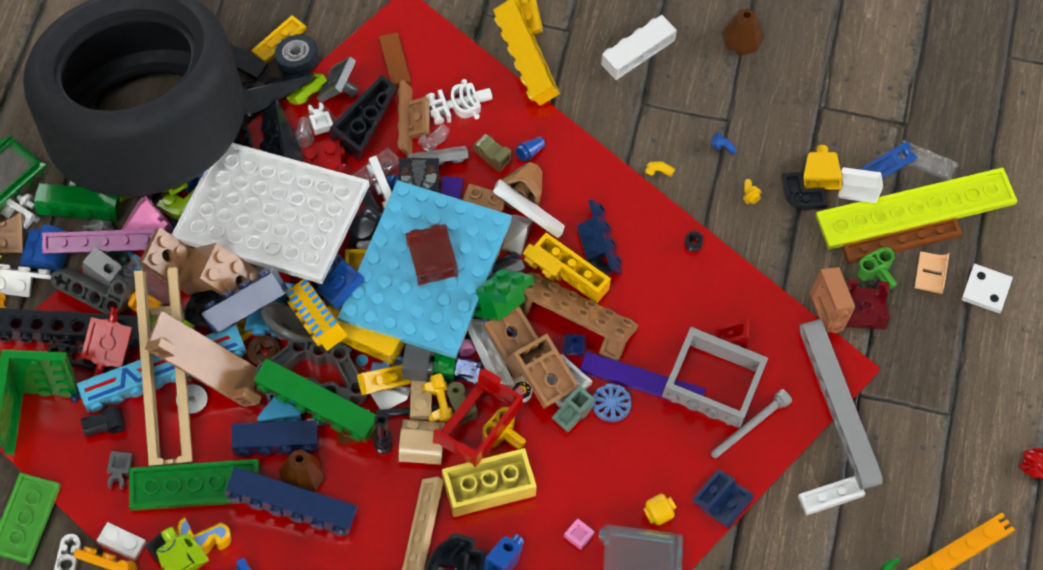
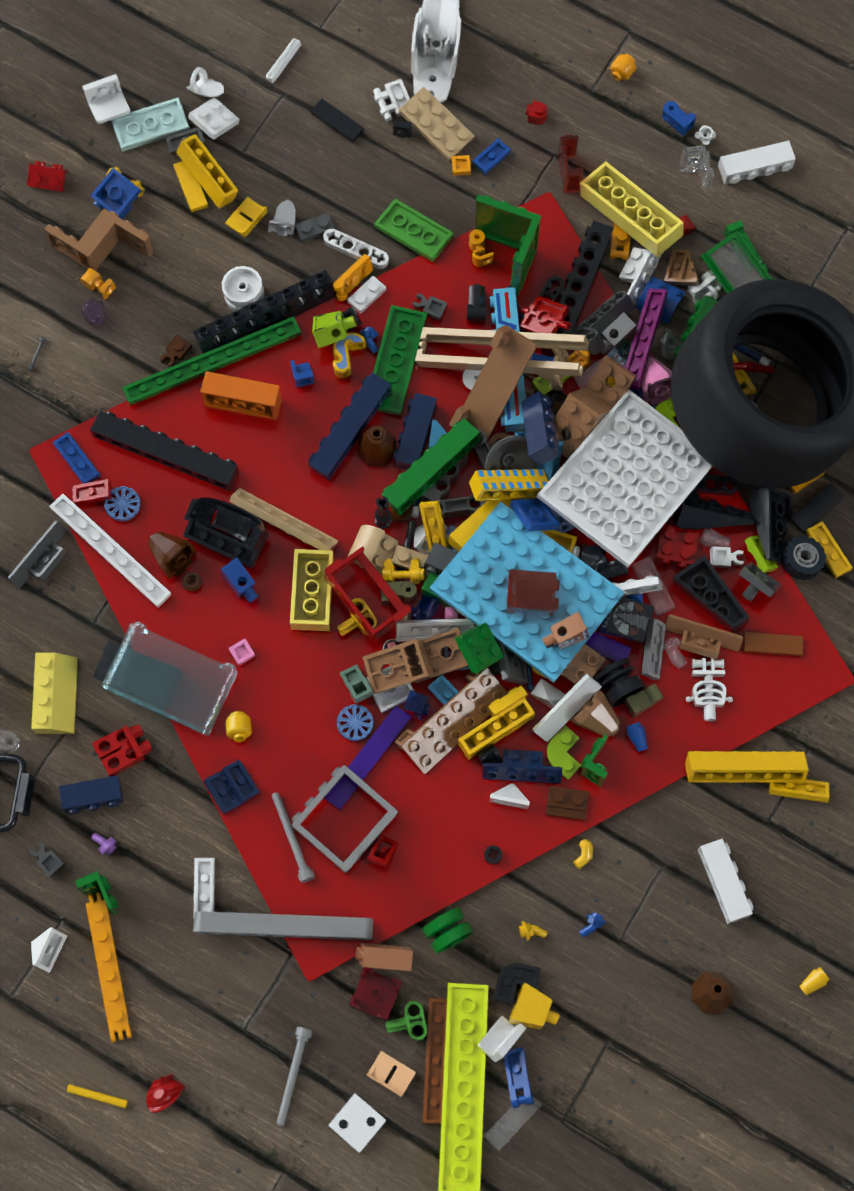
camera: 110 degrees right, 10 degrees up
(25, 445) = (476, 244): none -> light orange leg
(172, 519) = (369, 334): none -> blue plate
(463, 207) = (571, 626): none -> nougat torso
(485, 168) = (617, 679): none -> black wheel
(551, 325) = (442, 690): none -> dark azure plate
(568, 174) = (594, 771): none -> green bracket
(572, 213) = (558, 749): none -> lime plate
(618, 193) = (567, 803): none -> reddish brown plate
(631, 241) = (510, 796): none -> white slope
(783, 255) = (449, 933): none -> green wheel
(931, 357) = (302, 1036): none -> light grey piece

